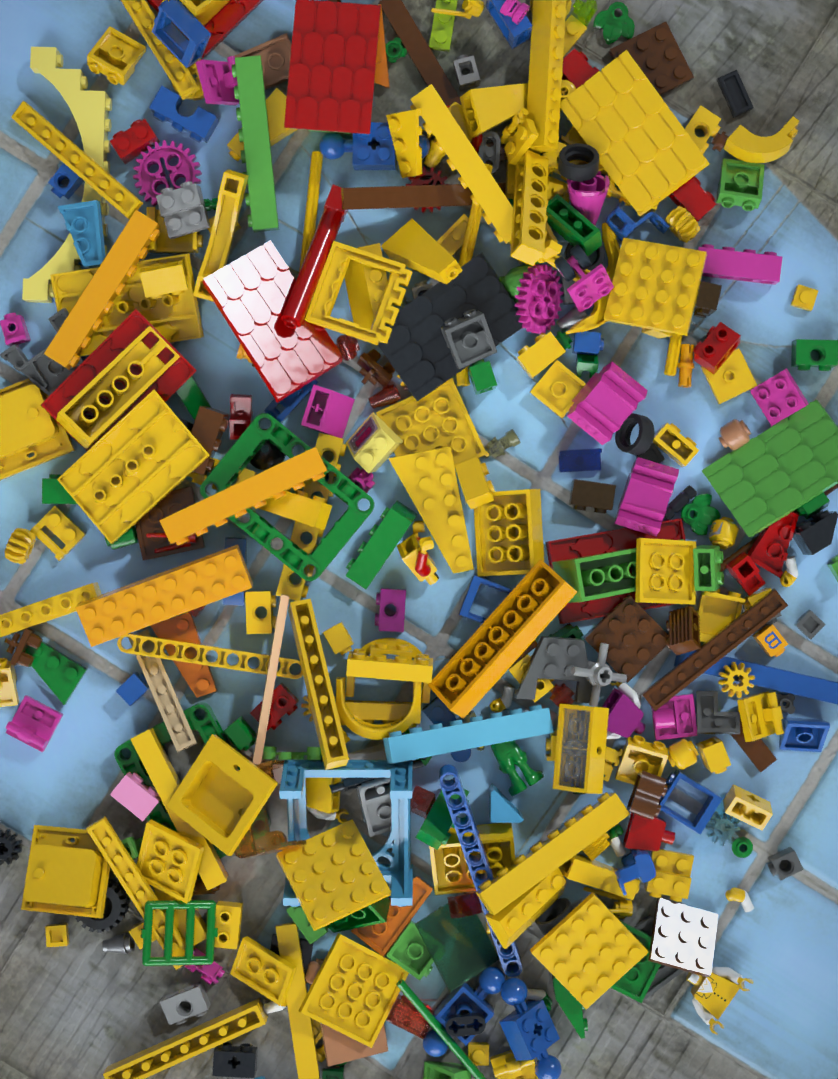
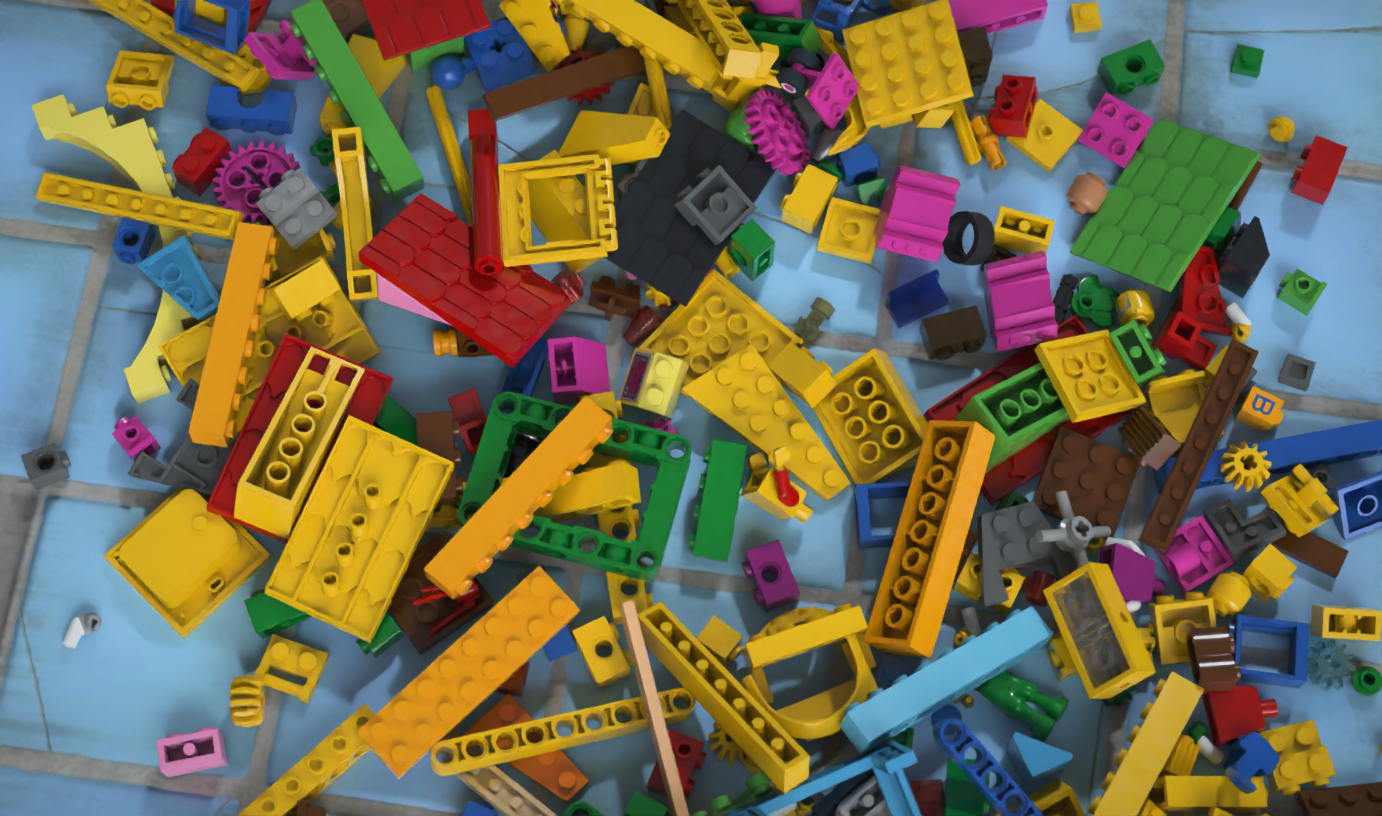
camera: 20 degrees left, 20 degrees down
(219, 164) = (318, 148): none -> green plate

